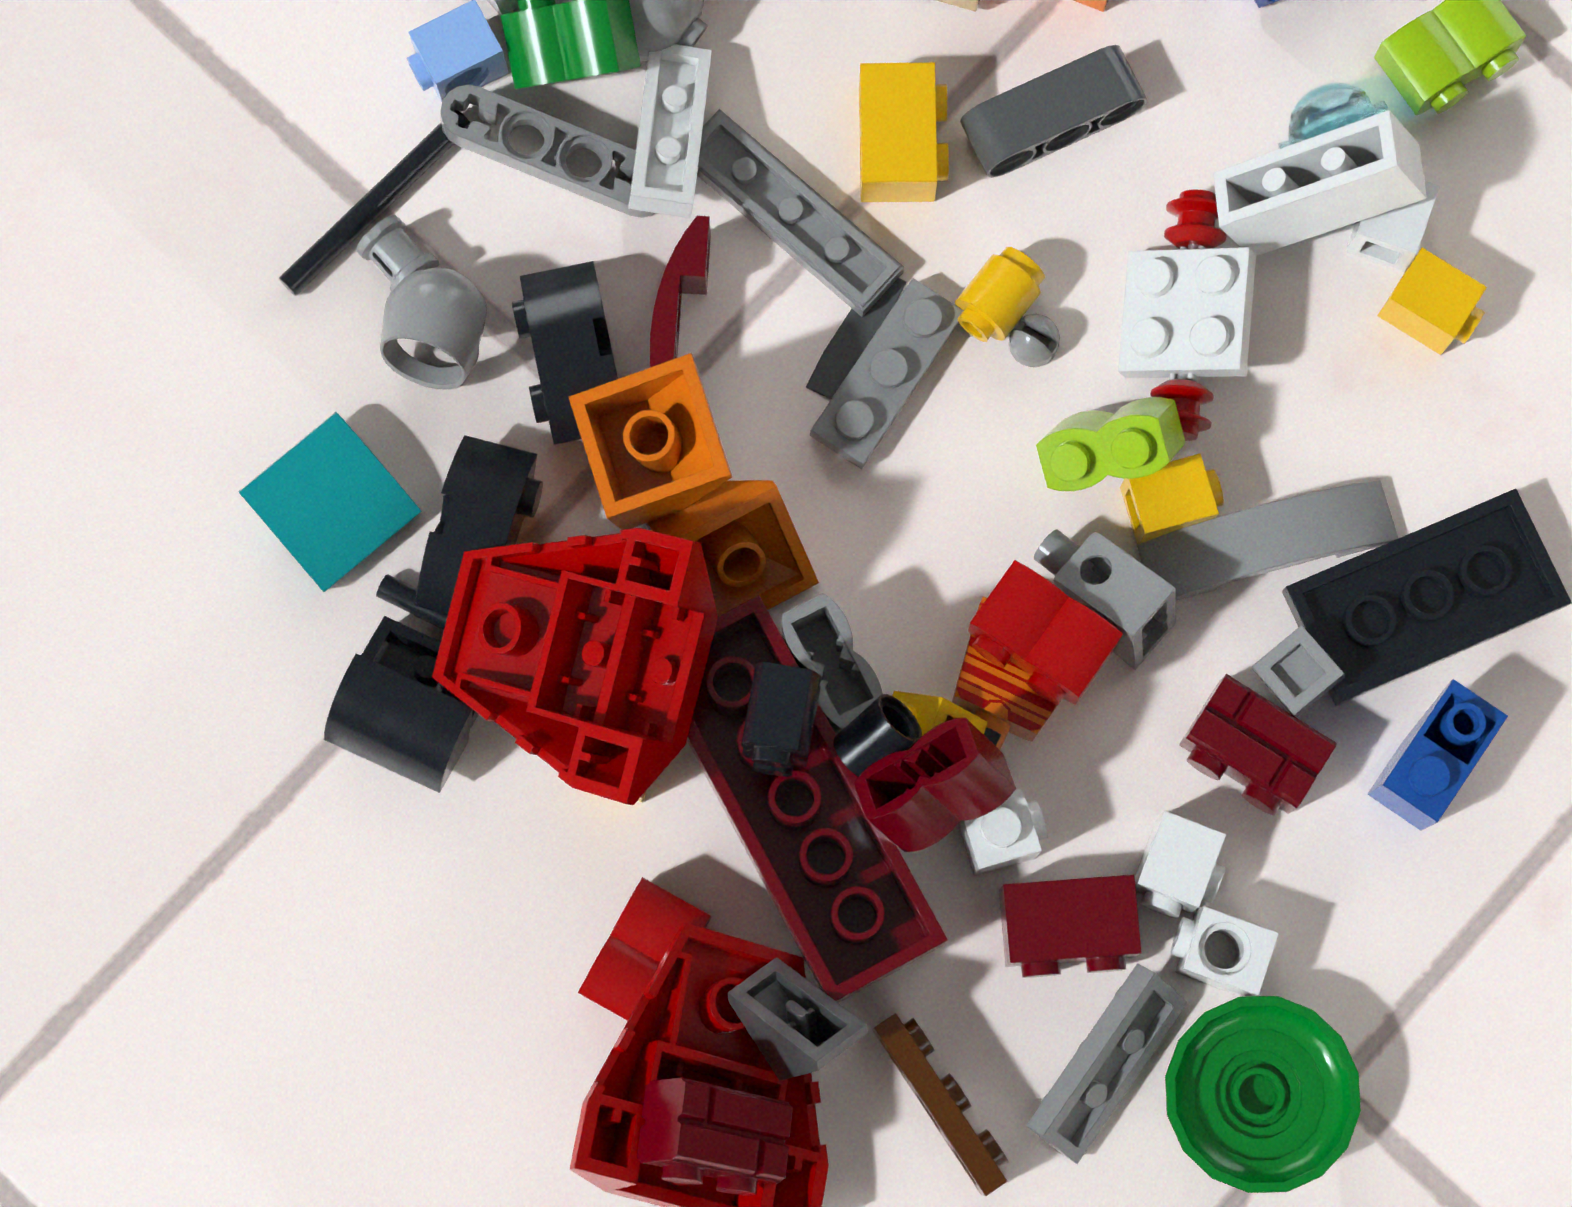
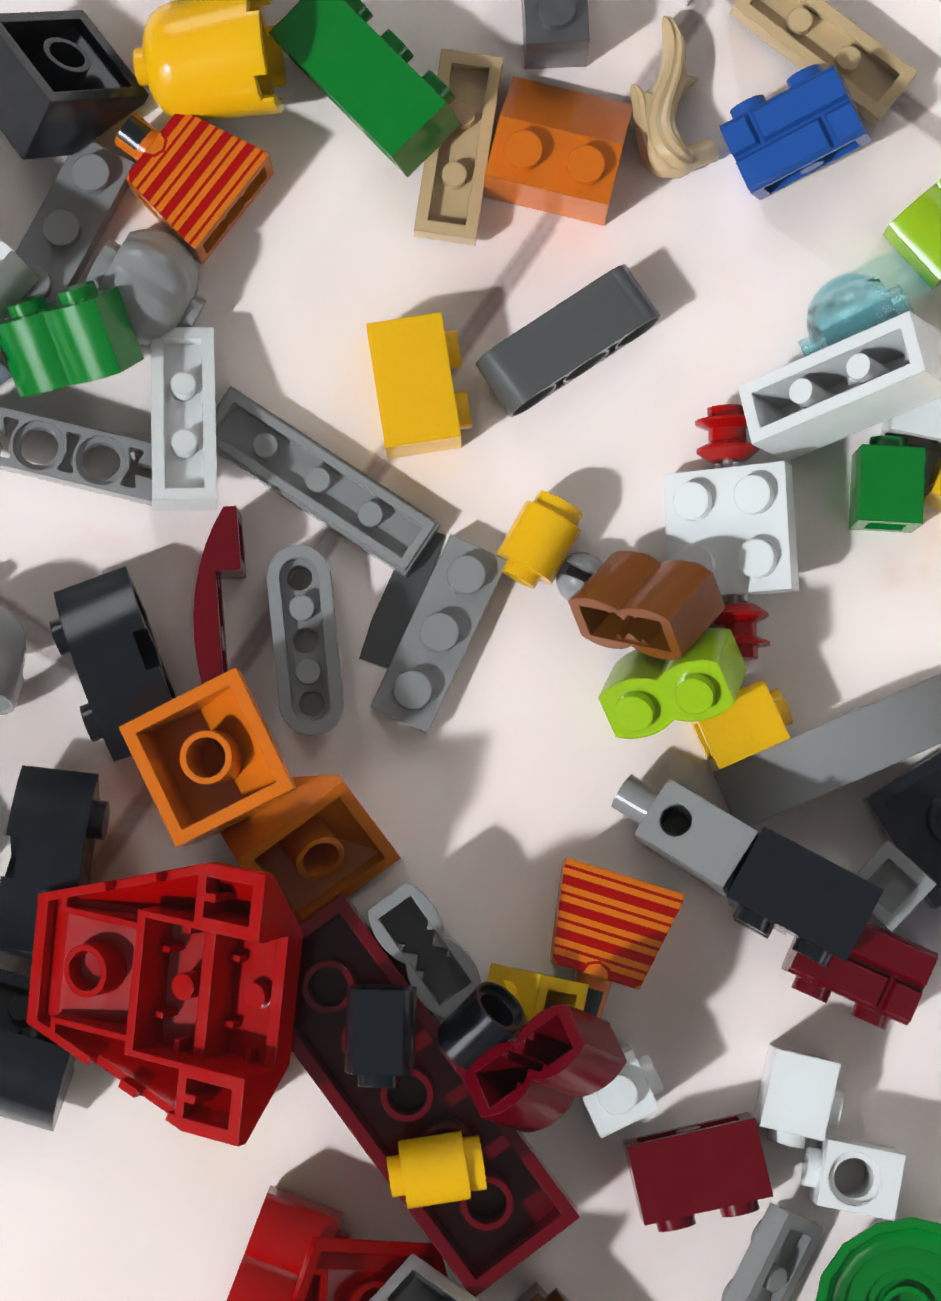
camera: 10 degrees left, 5 degrees up
(756, 333) = (297, 612): none -> light grey plate
(815, 866) = (437, 1169): none -> yellow brick
(1044, 634) = (632, 893): red brick -> none
(1096, 364) = (647, 604): none -> dark orange brick
(1208, 659) = (803, 896): none -> black brick
(1346, 292) = (887, 485): none -> green brick

